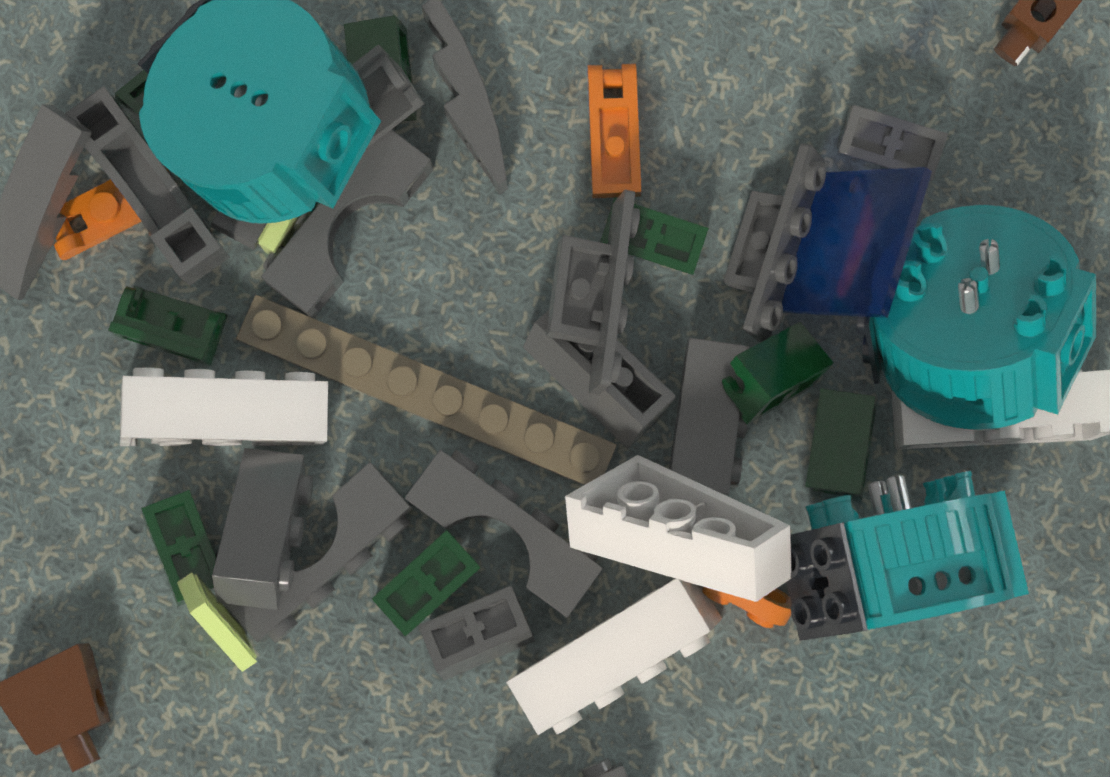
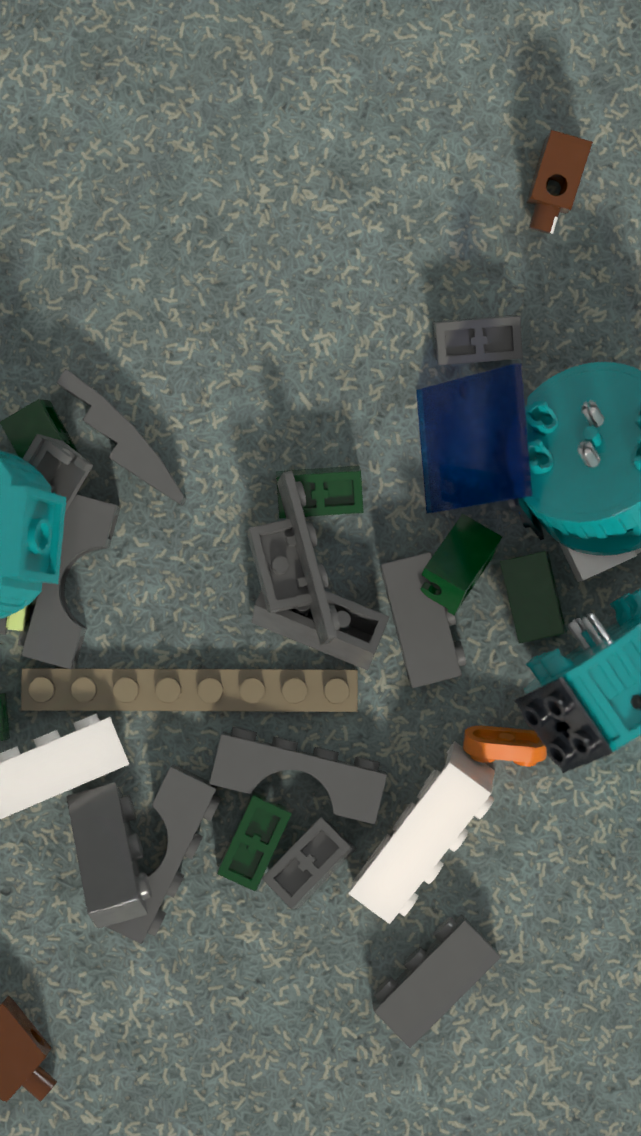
camera: 30 degrees left, 5 degrees up
(180, 541) = (50, 892): dark green hinge -> none
(217, 621) = (103, 941): yellowish green tile -> none
(614, 132) = (253, 419): orange plate -> none
(679, 530) = (435, 724): white wedge -> none
(769, 241) = (413, 459): dark grey bracket -> none

